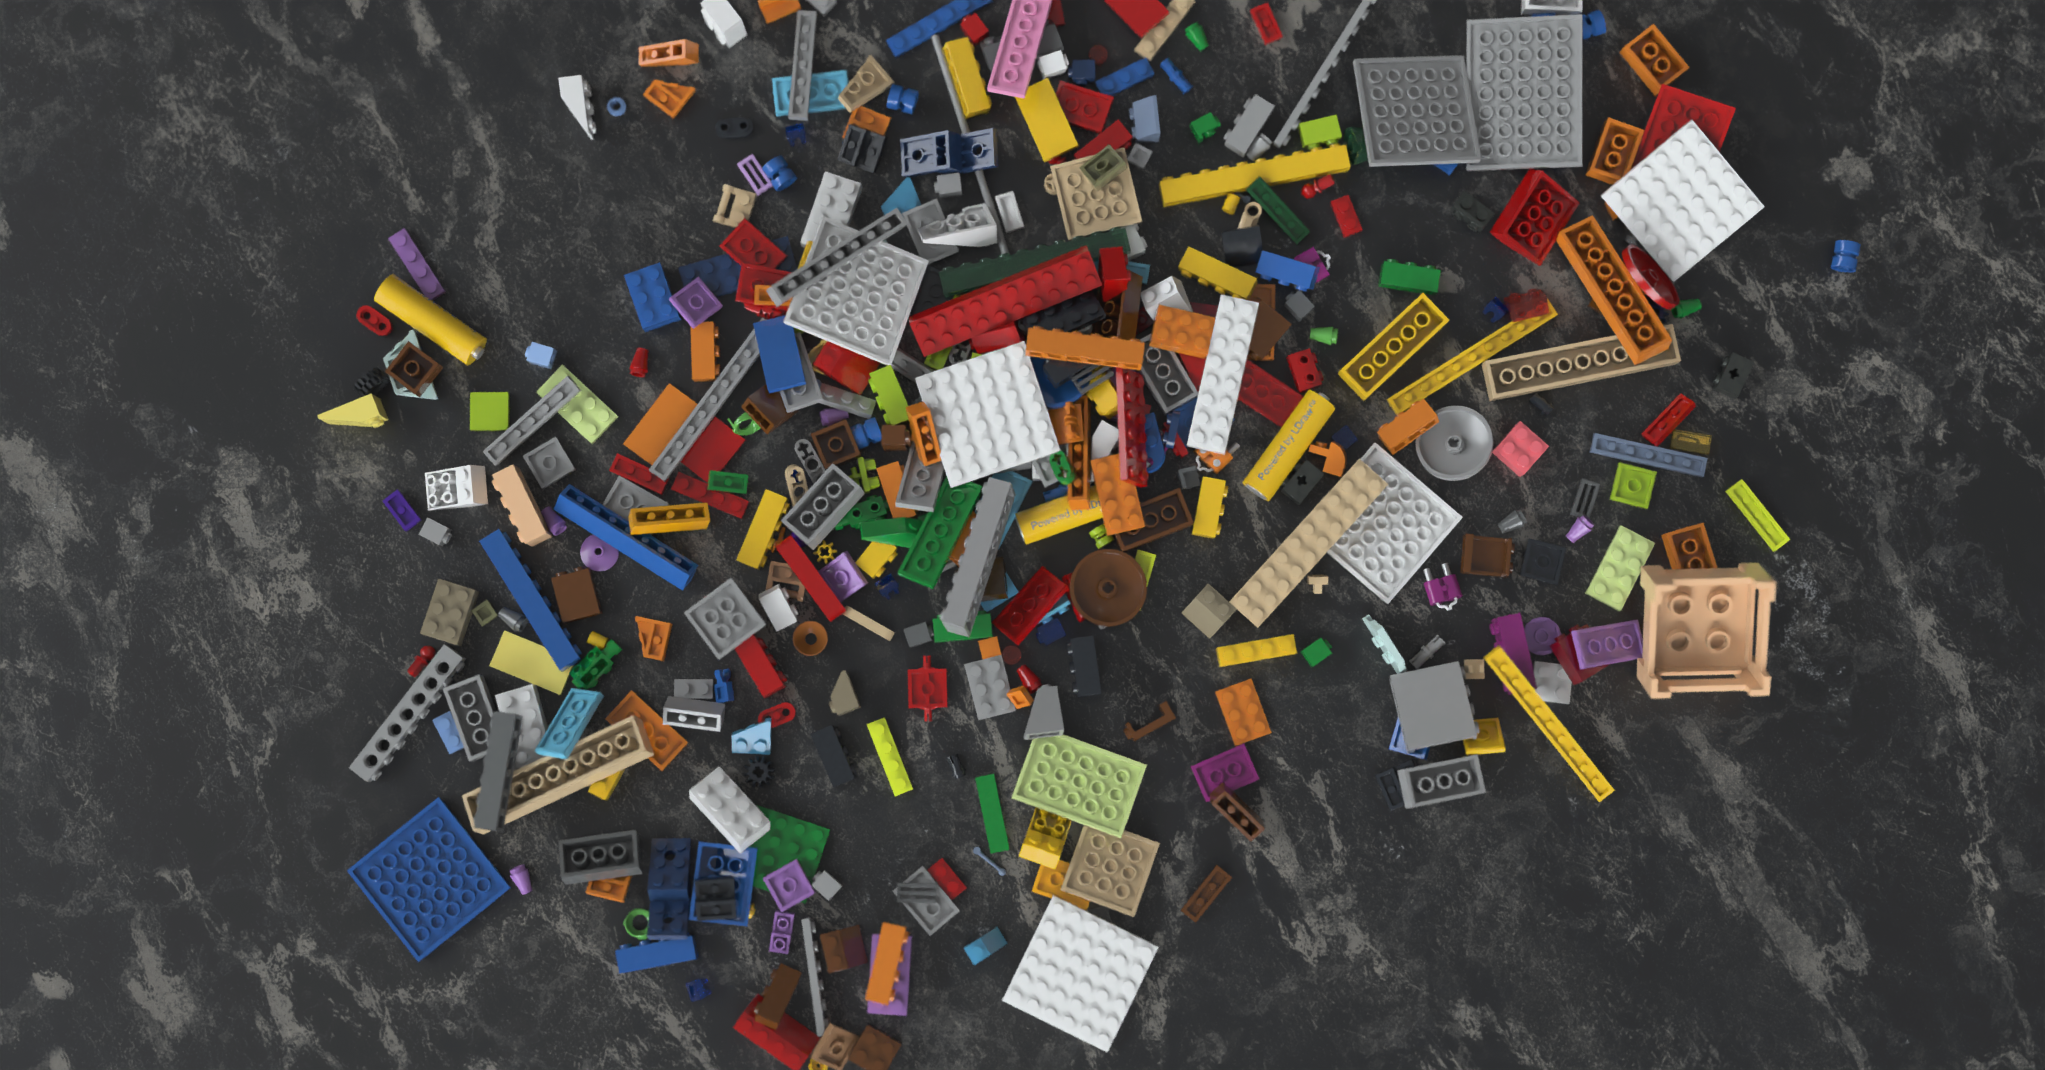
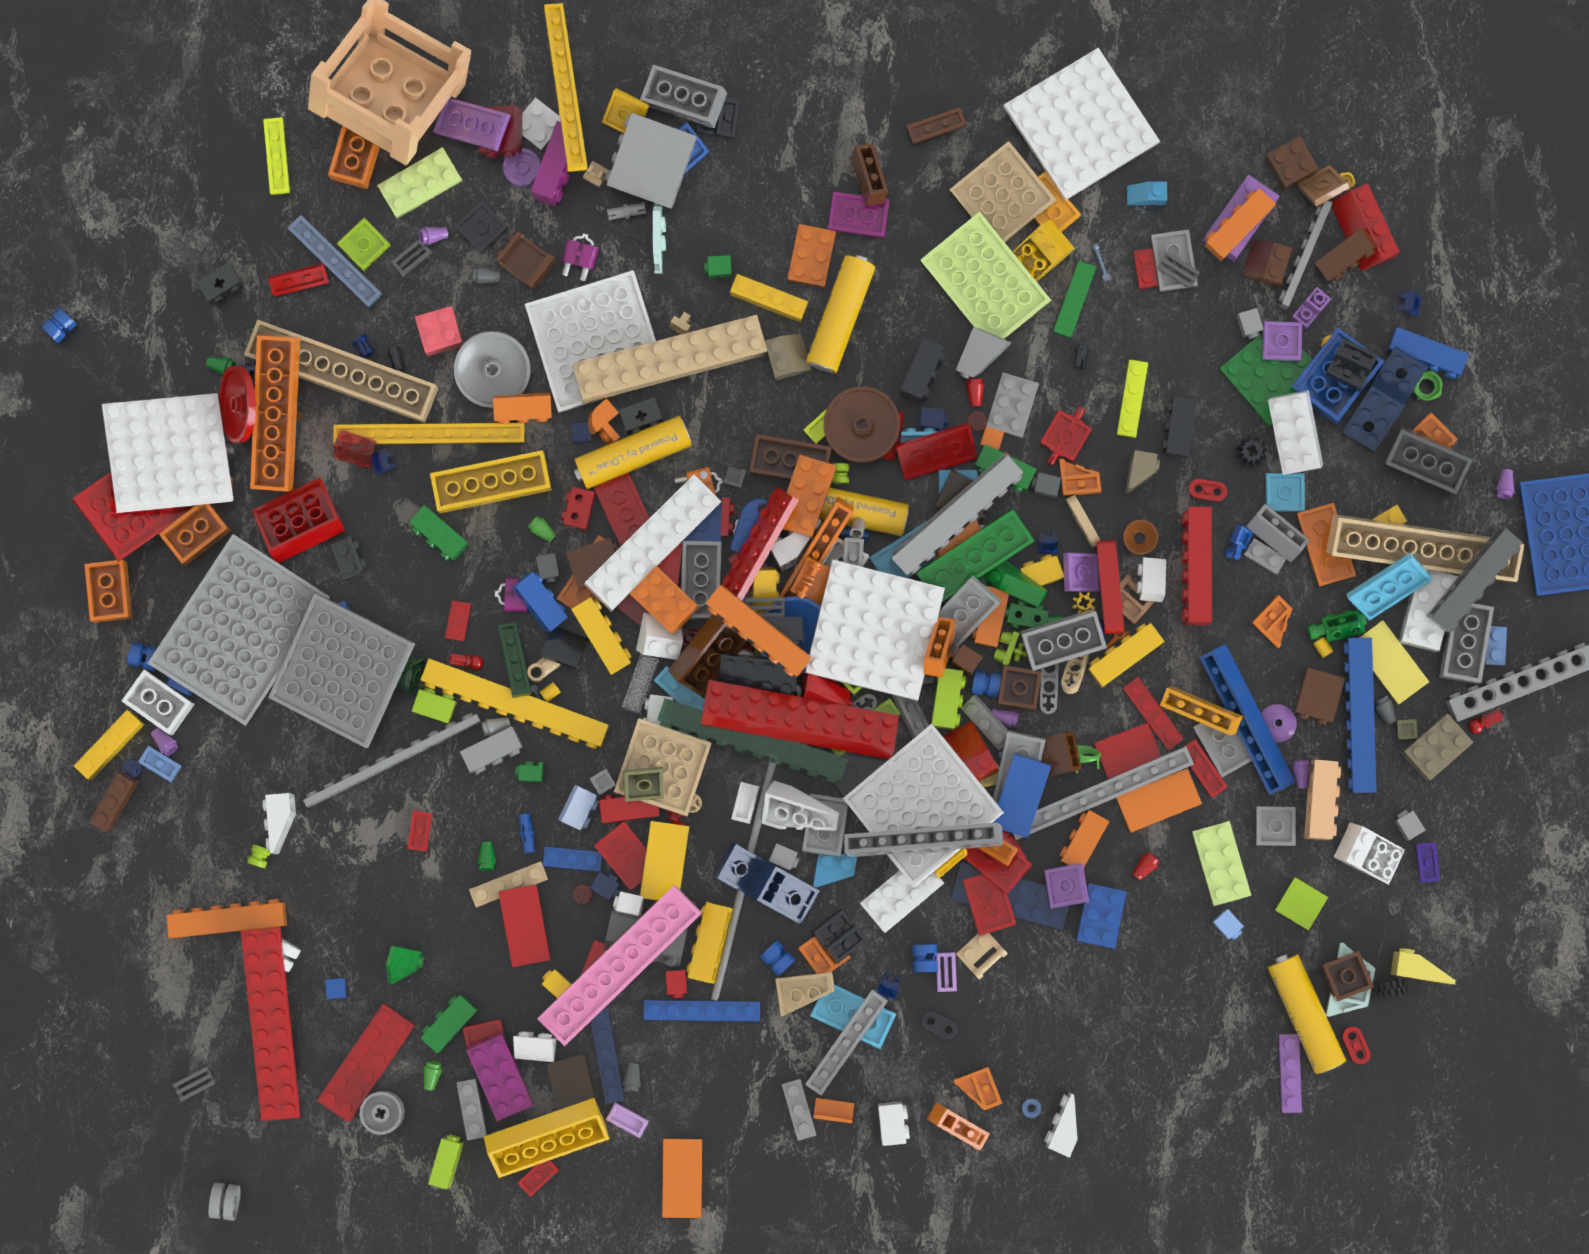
camera: 145 degrees left, 0 degrees up
(532, 420) = (1269, 870): light grey plate -> none
(708, 754) = (1285, 492): none -> medium azure tile
(725, 618) = (1205, 591): light grey plate -> none
(727, 482) = (1131, 714): green plate -> none
(753, 739) = (1240, 482): wing -> none
(893, 657) = (1078, 480): none -> orange wing
(1020, 697) = (992, 379): orange plate -> none
(1056, 494) = (857, 528): none -> light grey hinge
(1065, 465) = (844, 544): green beam -> none
(1113, 272) = (692, 686): red slope -> none
(1158, 253) = (640, 683): none -> clear brick
(1167, 717) = (897, 287): reddish brown panel -> none
(1173, 421) = (730, 518): dark blue plate -> none
(1186, 674) = (840, 314): none -> yellow piece
(1209, 507) = (732, 442): yellow brick -> none
(1569, 396) = (363, 346): none -> clear blue bush
(1690, 442) = (291, 251): clear yellow tile -> none

